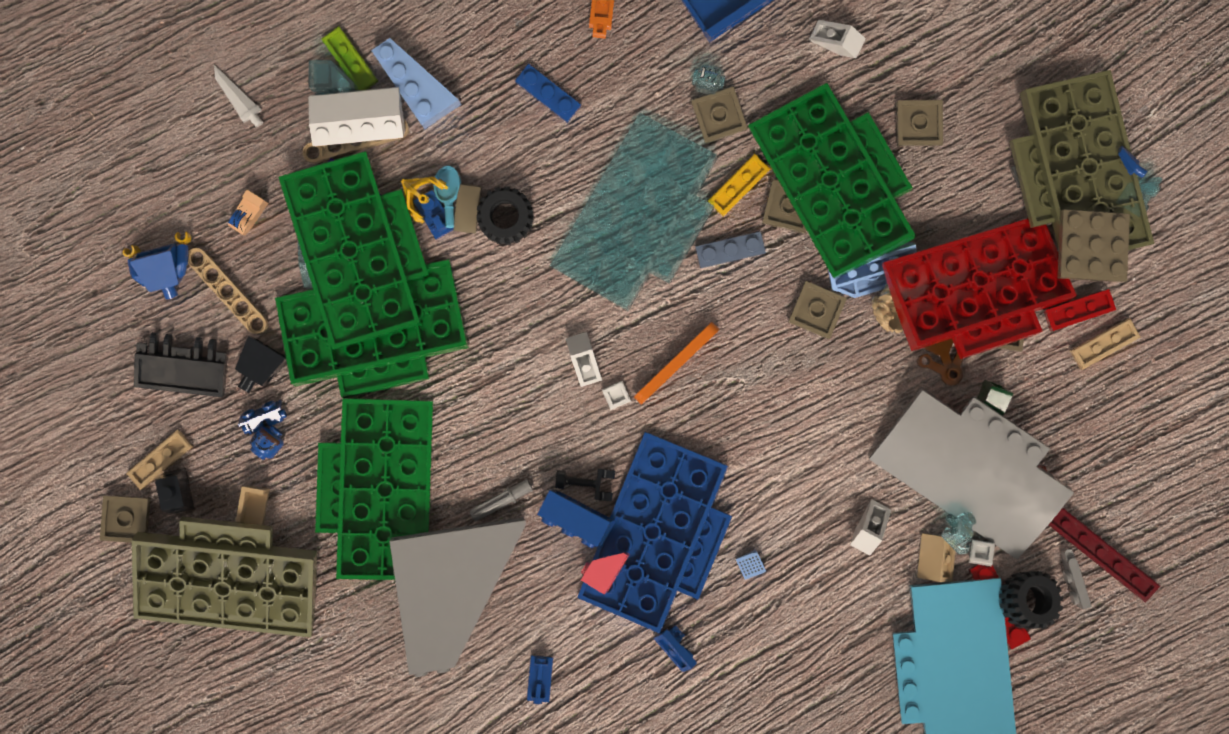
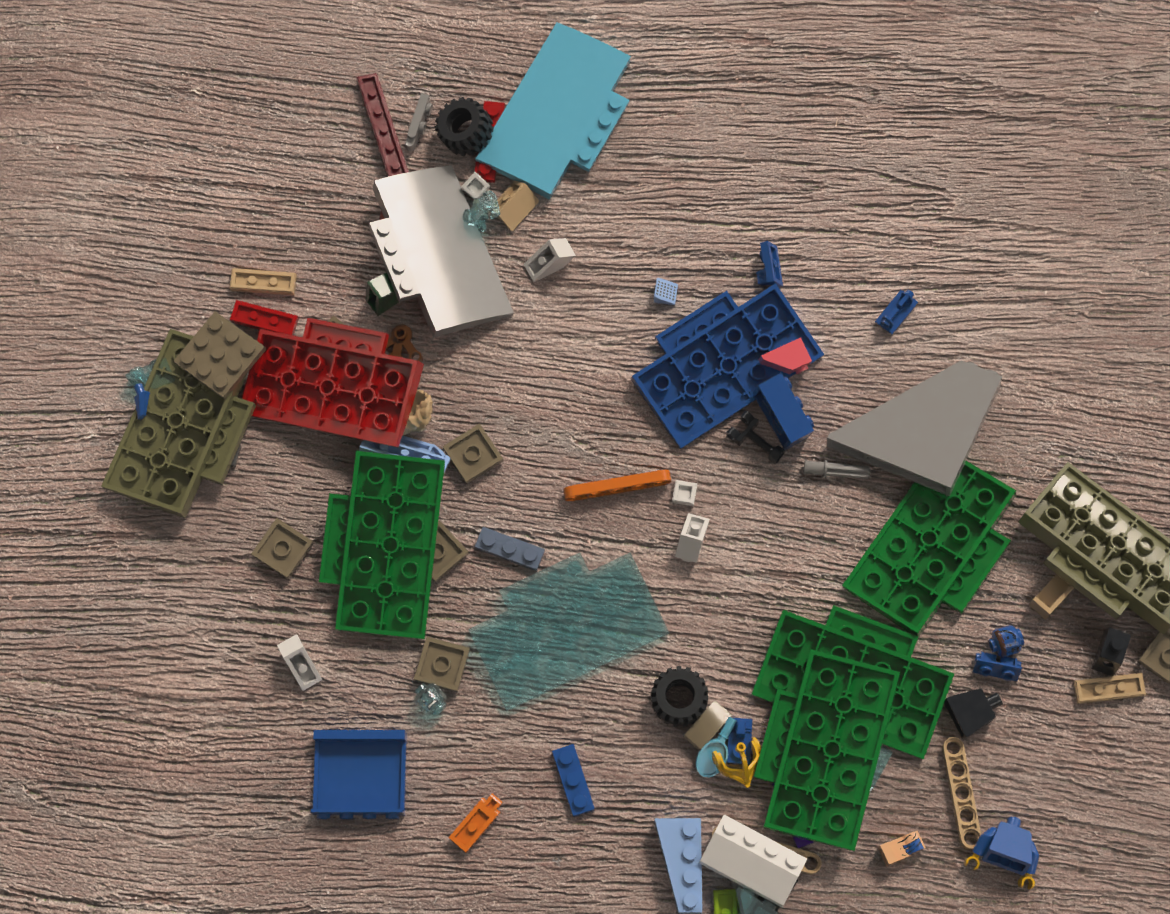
camera: 145 degrees left, 15 degrees down
(177, 371) = (1045, 750): black hinge -> none
(739, 185) = (465, 597): yellow tile -> none

